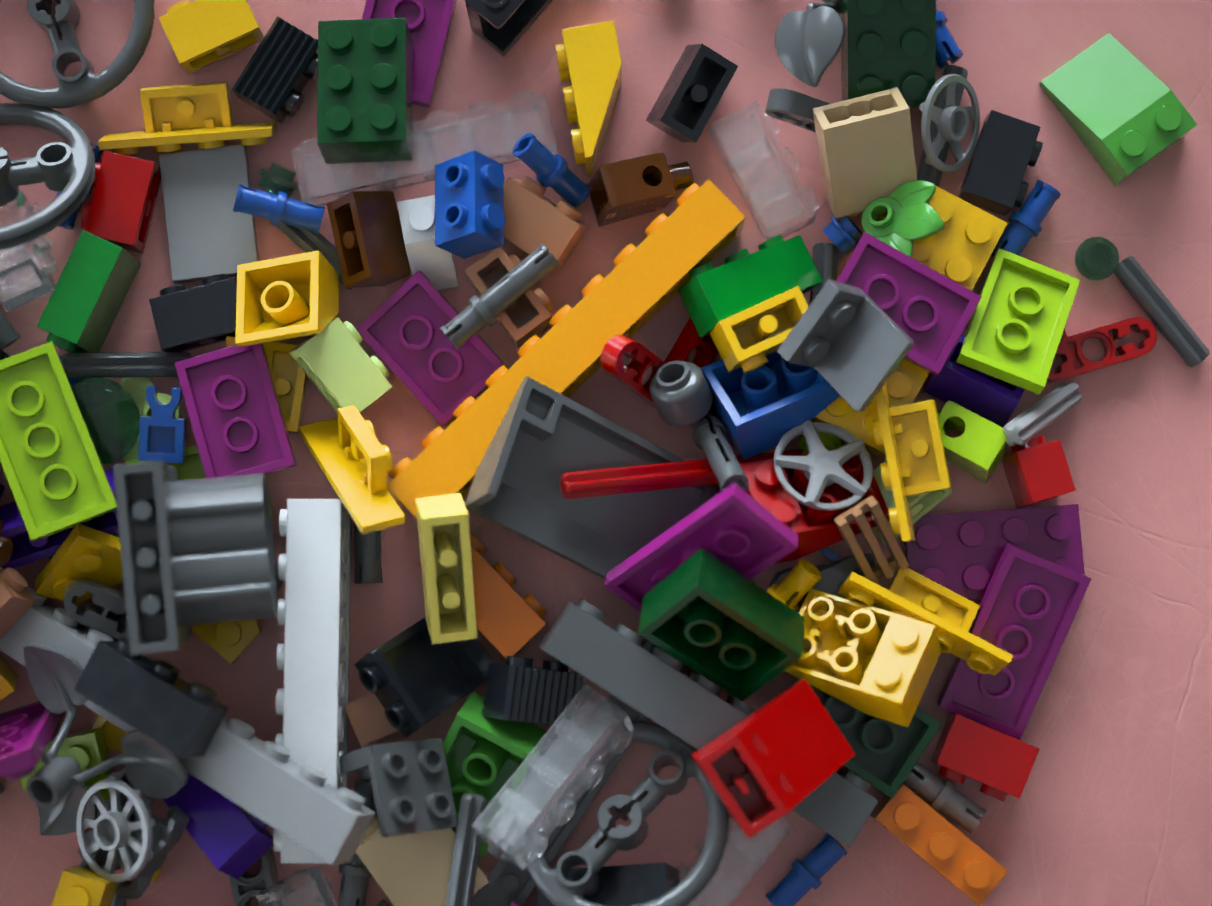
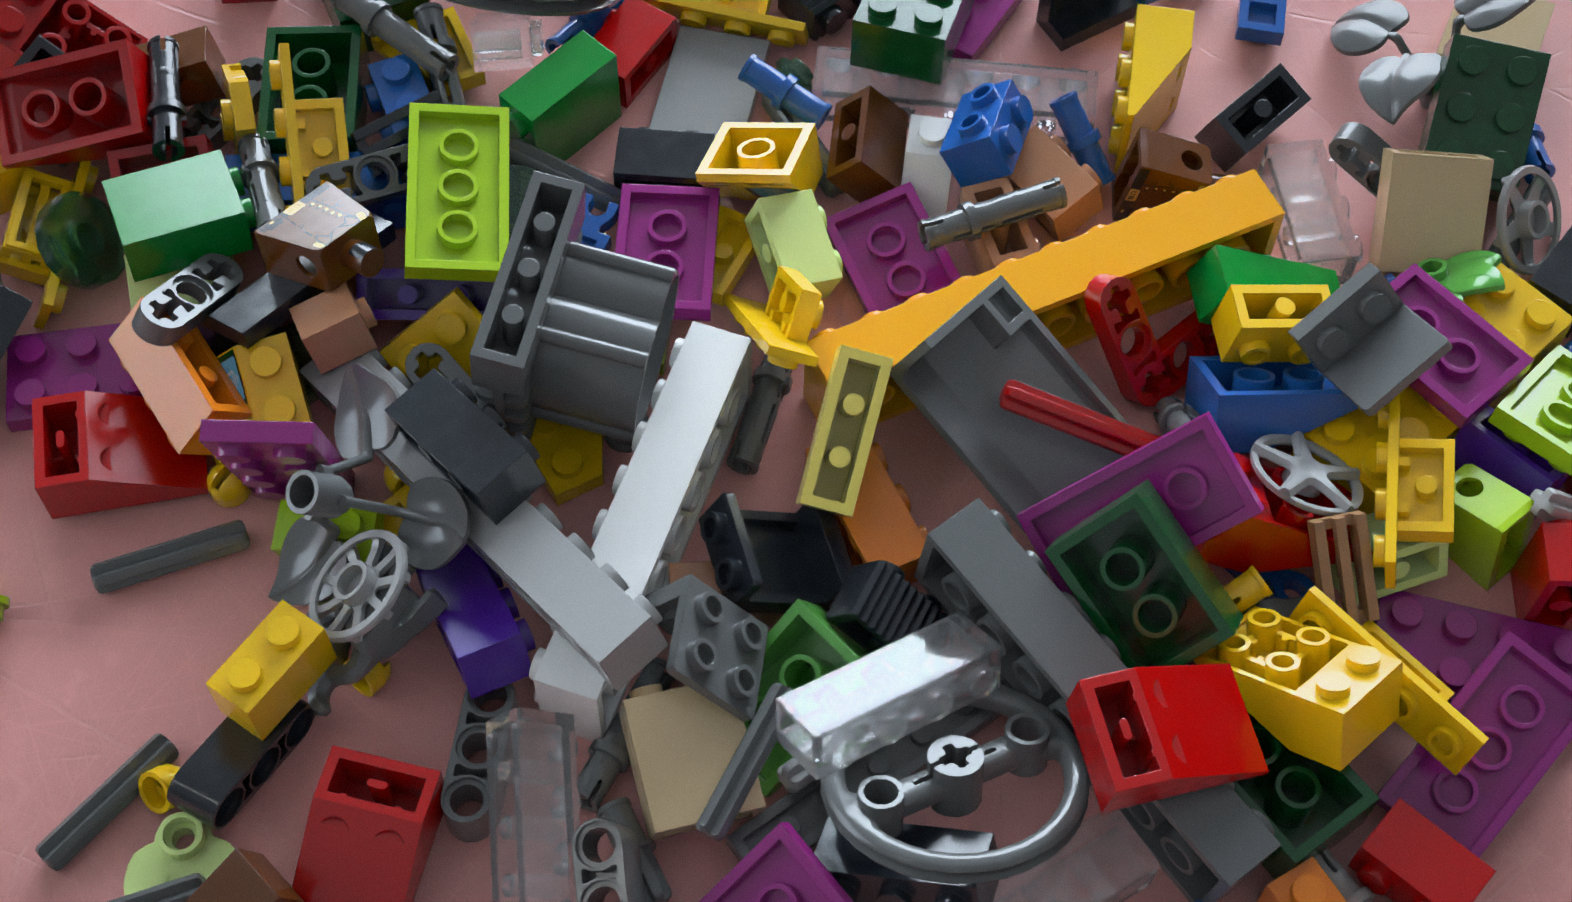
camera: 15 degrees right, 25 degrees down
(680, 393) = (1161, 367): dark grey head -> none

